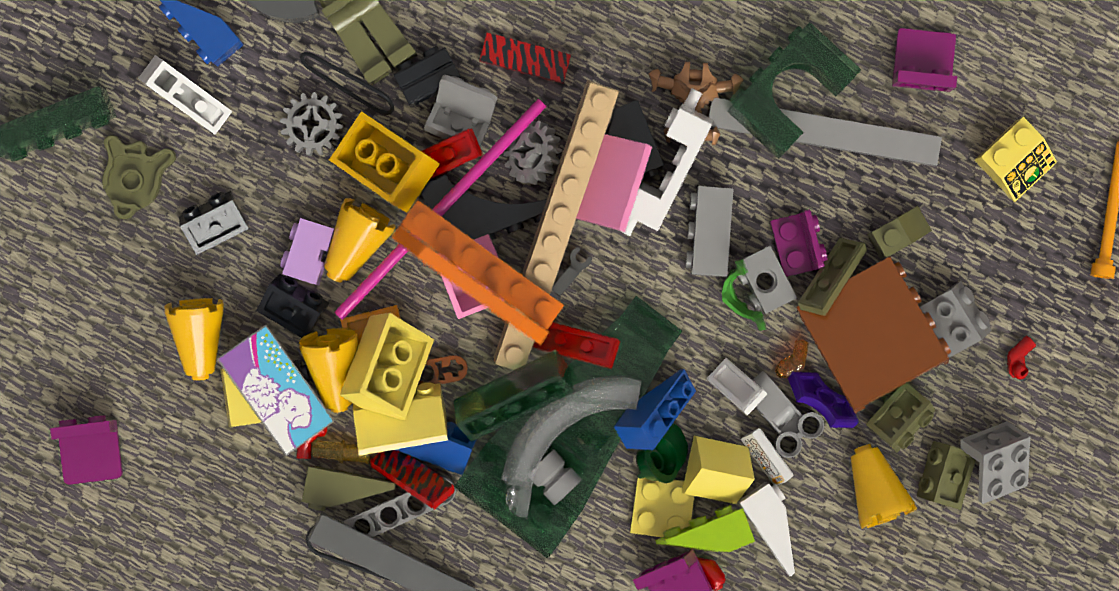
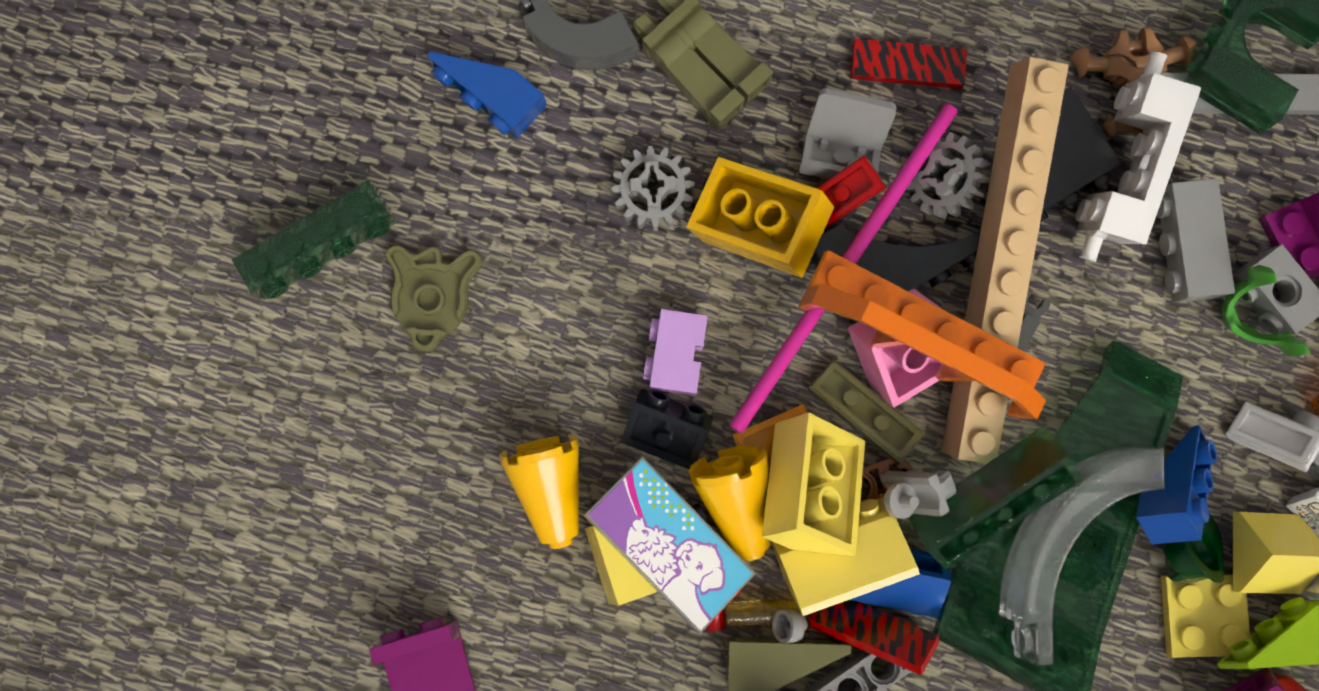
camera: 10 degrees left, 5 degrees down
(185, 94) = (481, 176): white slope -> none
(212, 222) = (544, 335): bracket -> none
(353, 463) = (789, 631): none -> light grey hinge
(355, 239) = (736, 328): yellow cone -> none
(385, 96) = (693, 116): black piece -> none
(422, 79) = (788, 105): black brick -> none
(440, 318) = (866, 412): none -> olive tile
(458, 383) = (917, 492): none -> light grey hips
(555, 478) = (1075, 605): light grey wheel -> none
(580, 345) = (1069, 417): red tile -> none
(614, 183) = (1079, 192): bright pink tile -> none

